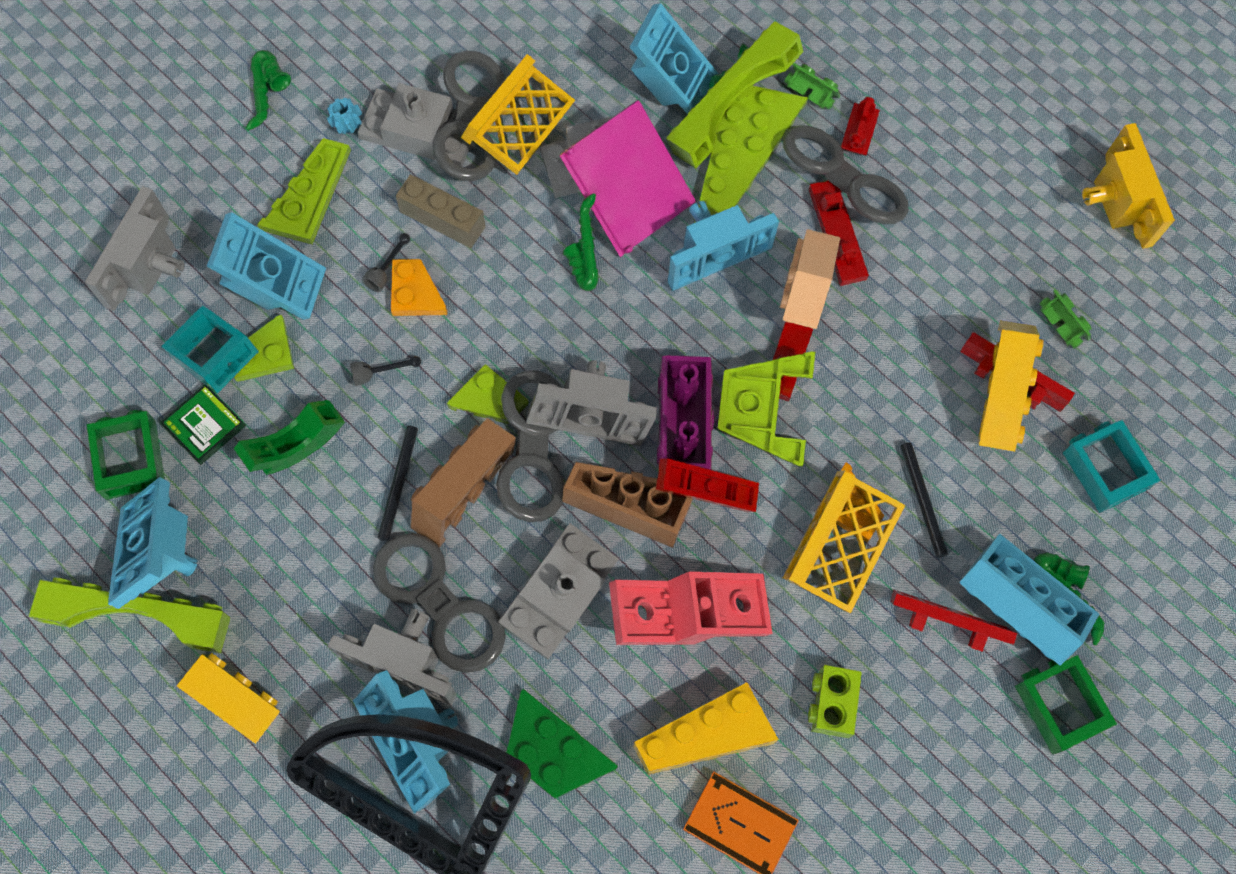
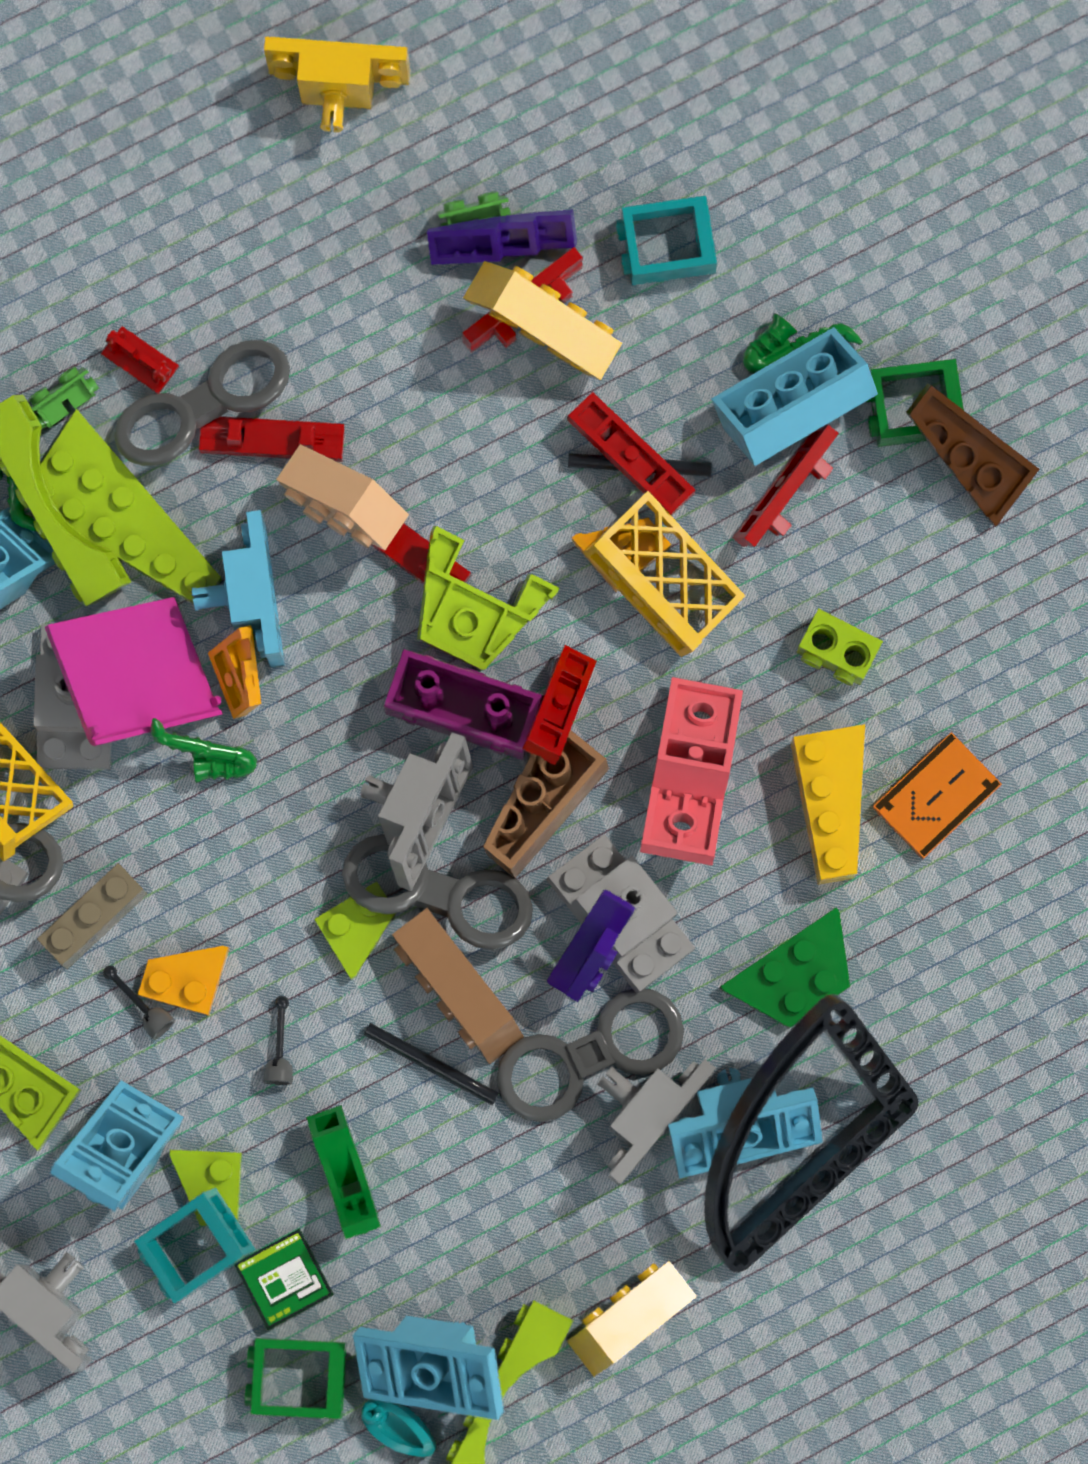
camera: 70 degrees left, 10 degrees up
(100, 542) = (398, 1428): none -> teal arm
(519, 566) = (591, 947): none -> dark purple bracket
(654, 253) = (237, 671): none -> light orange wing
(929, 486) = (630, 453): none -> red hinge
(1041, 767) = (977, 457): none -> reddish brown wing
(1059, 343) = (501, 236): none -> dark purple slope

